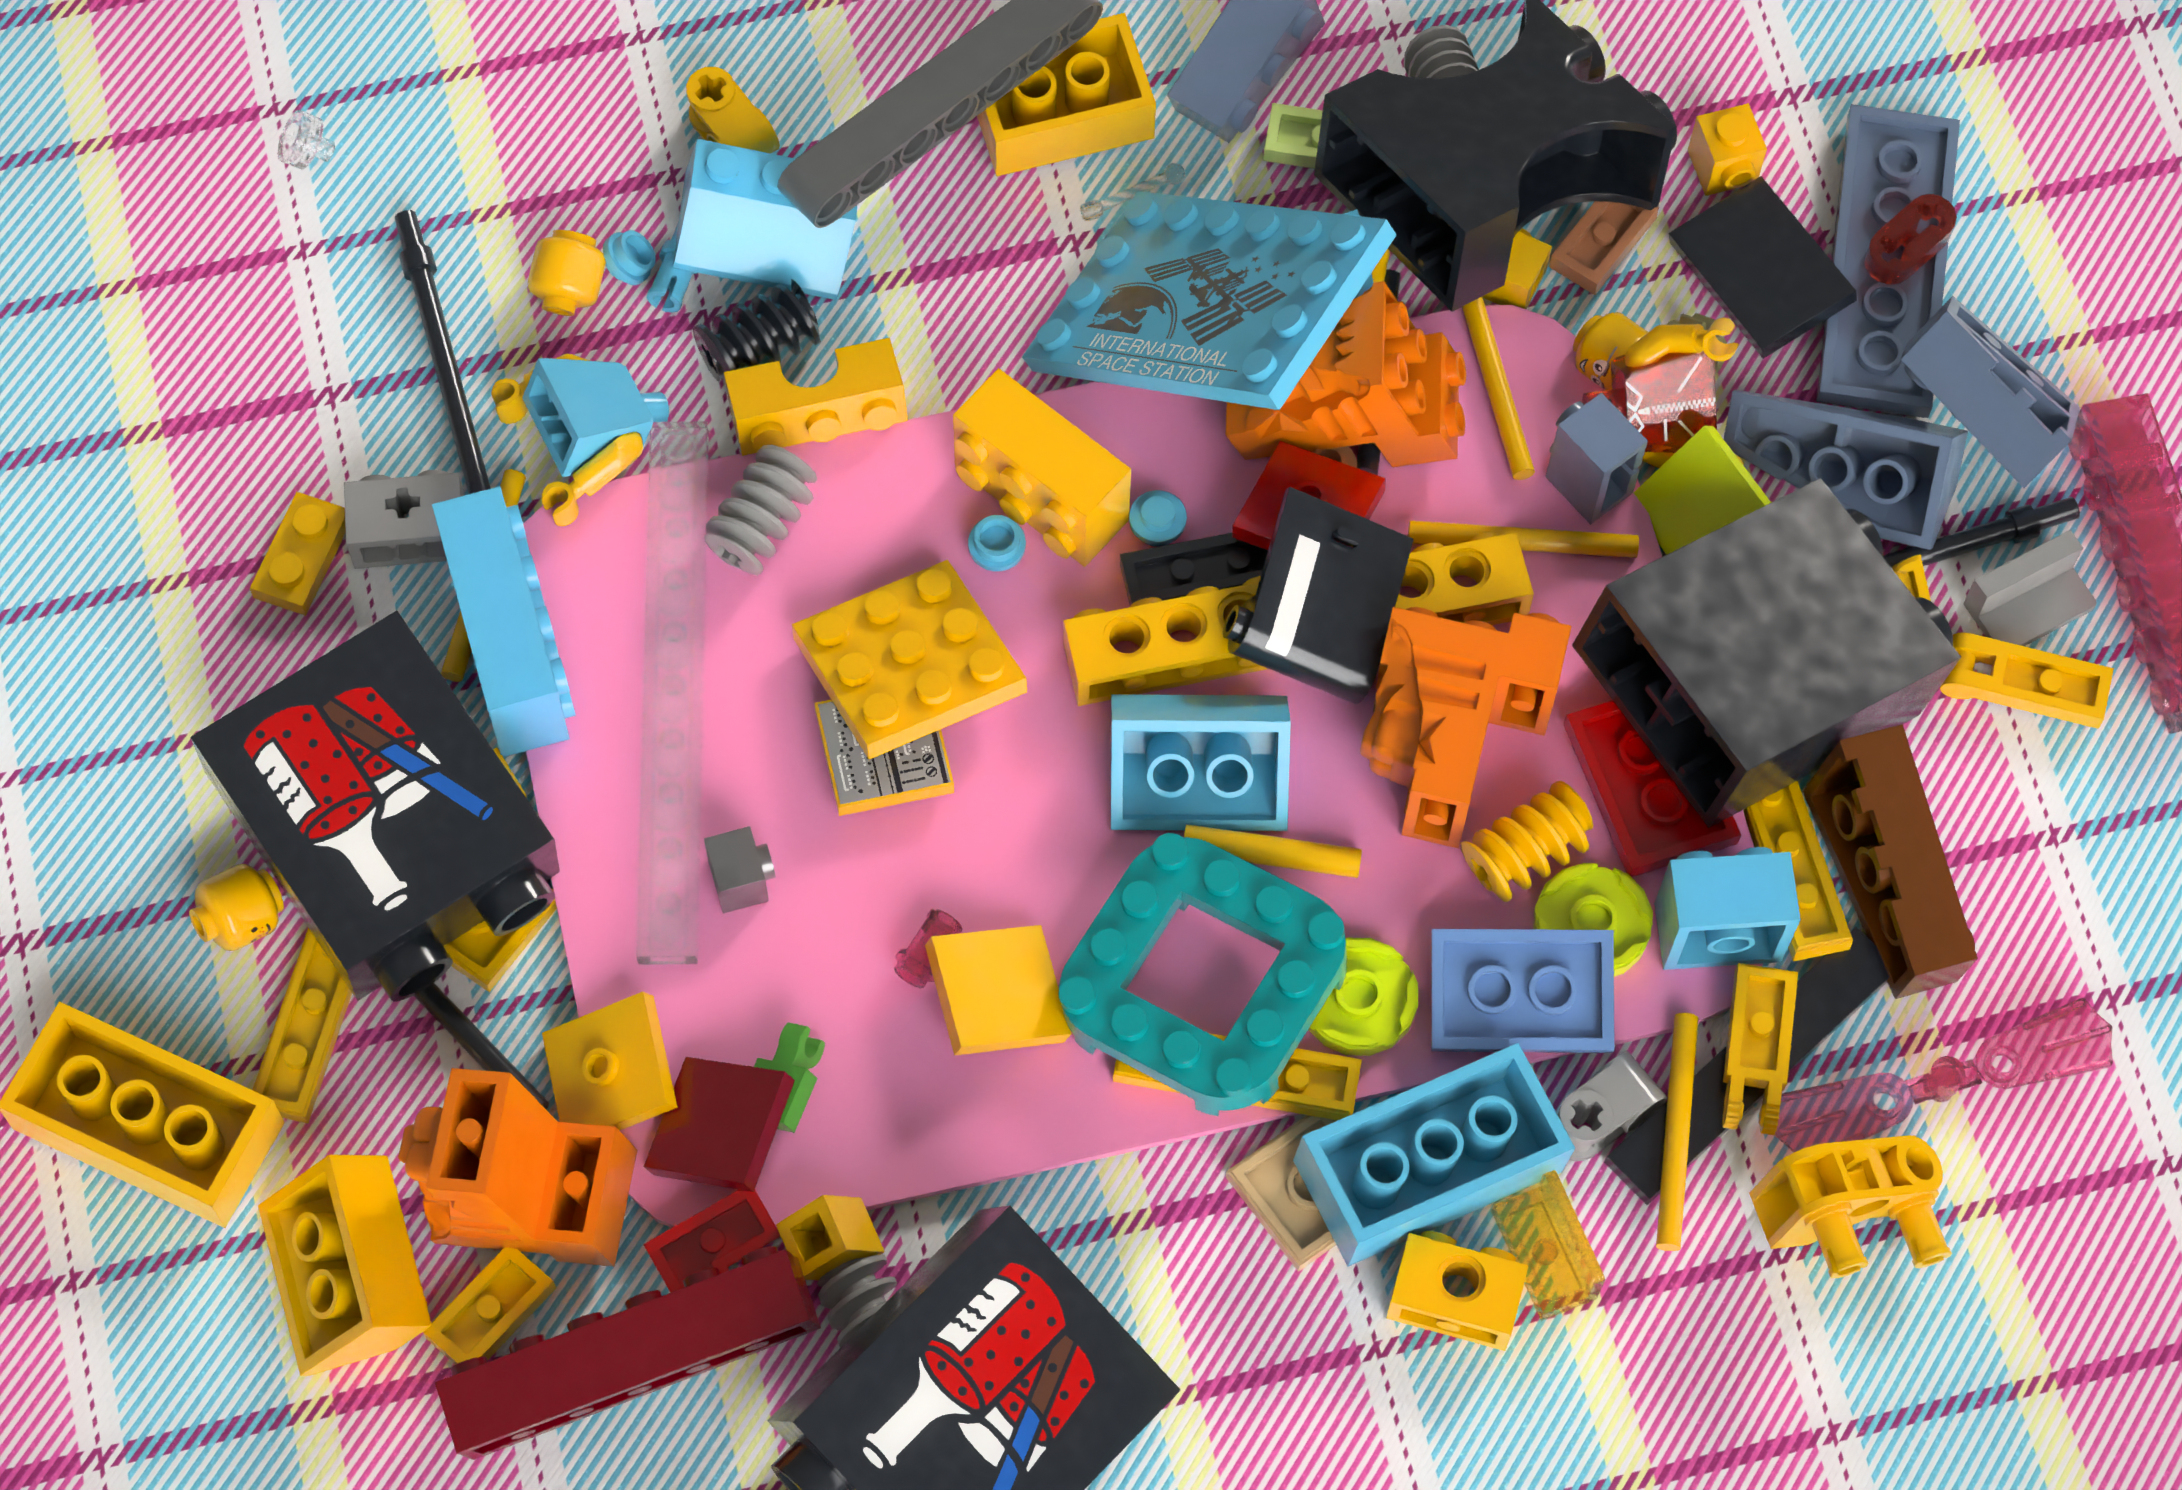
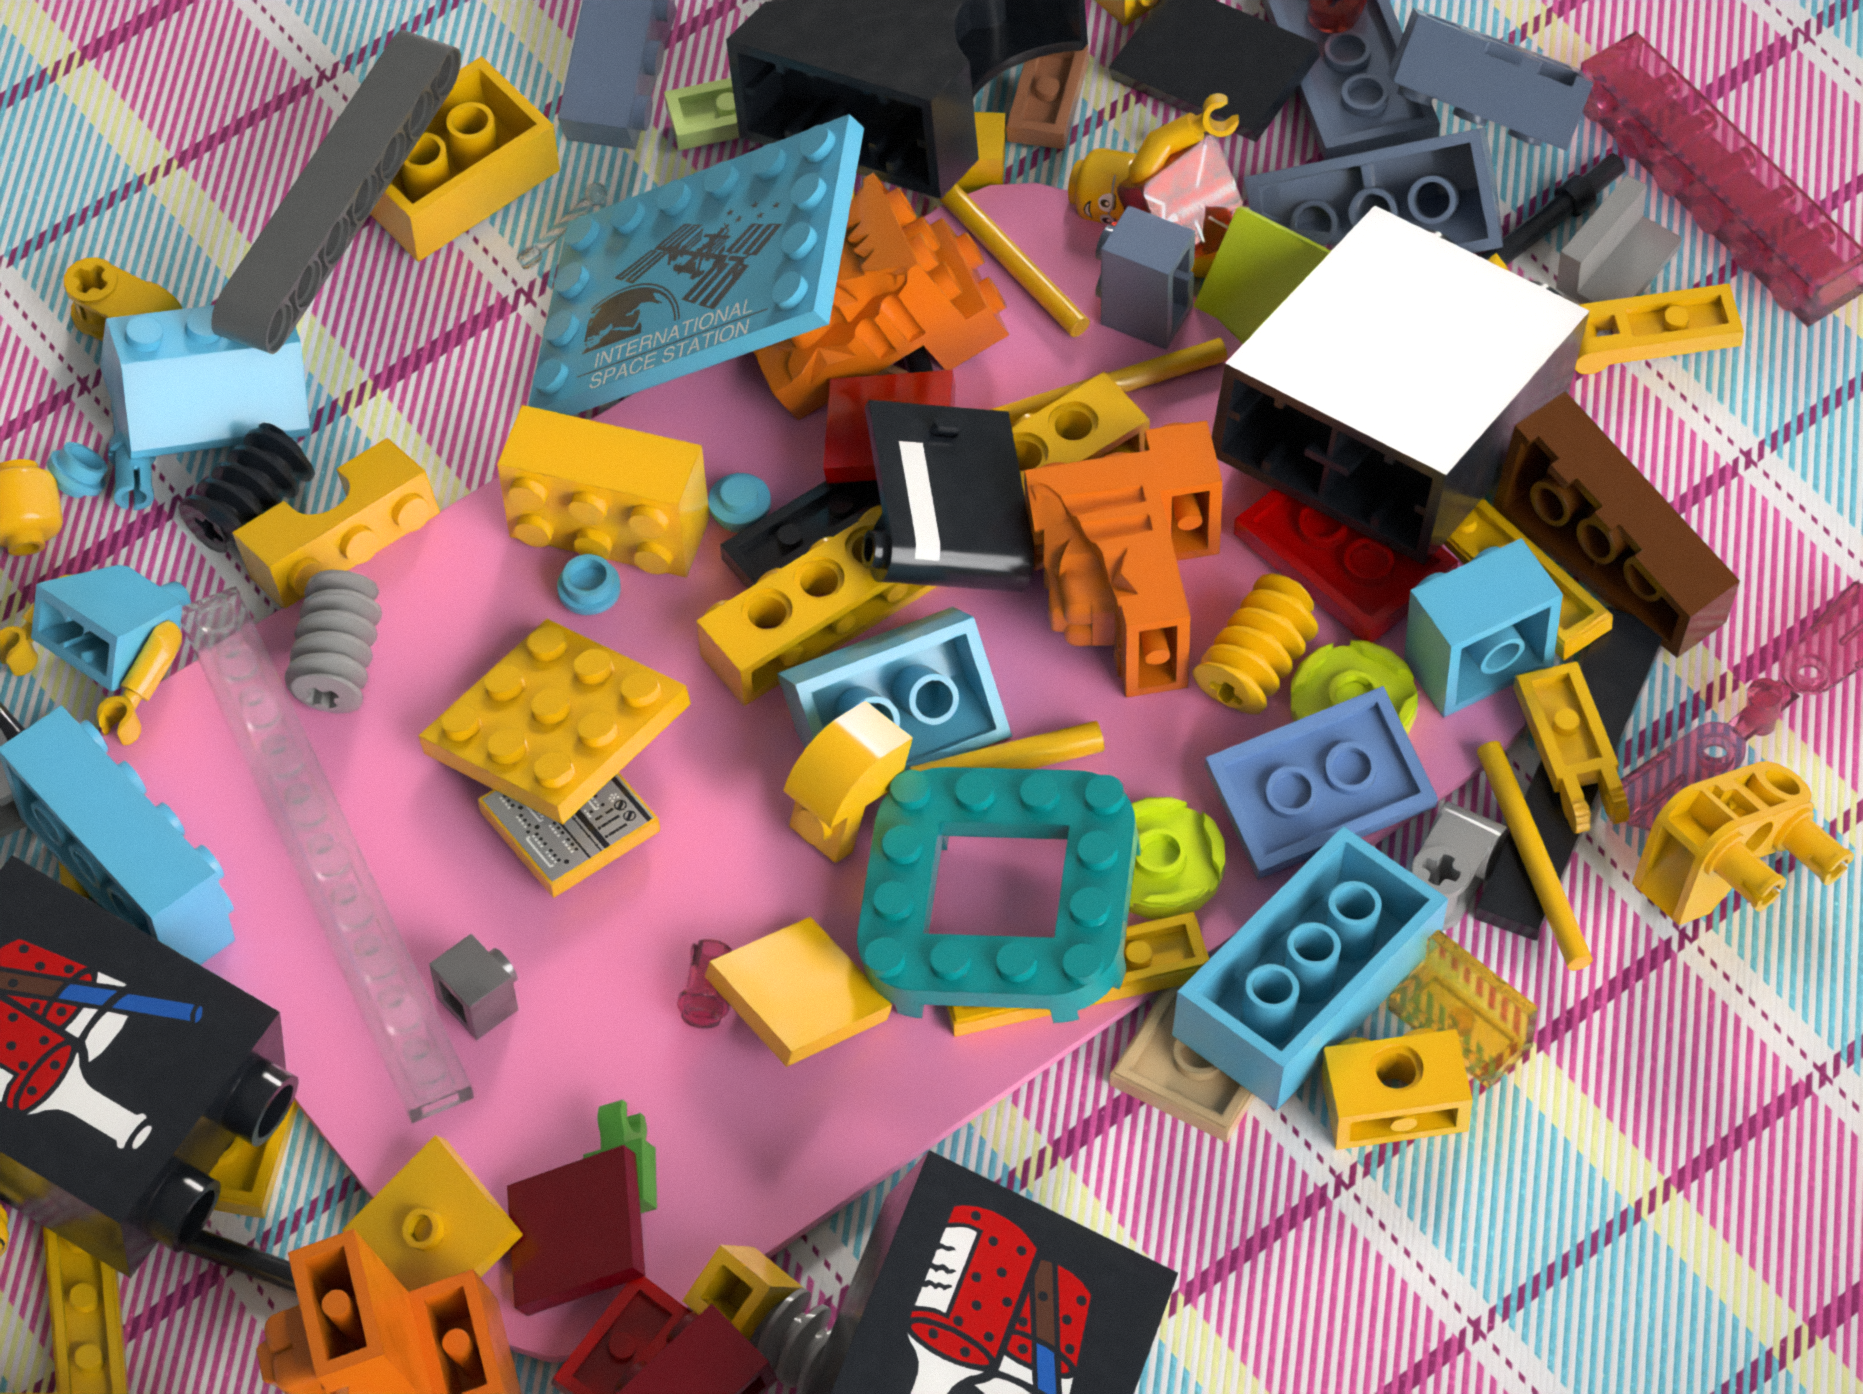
camera: 20 degrees left, 10 degrees down
(1119, 816) = (842, 774): none -> yellow brick

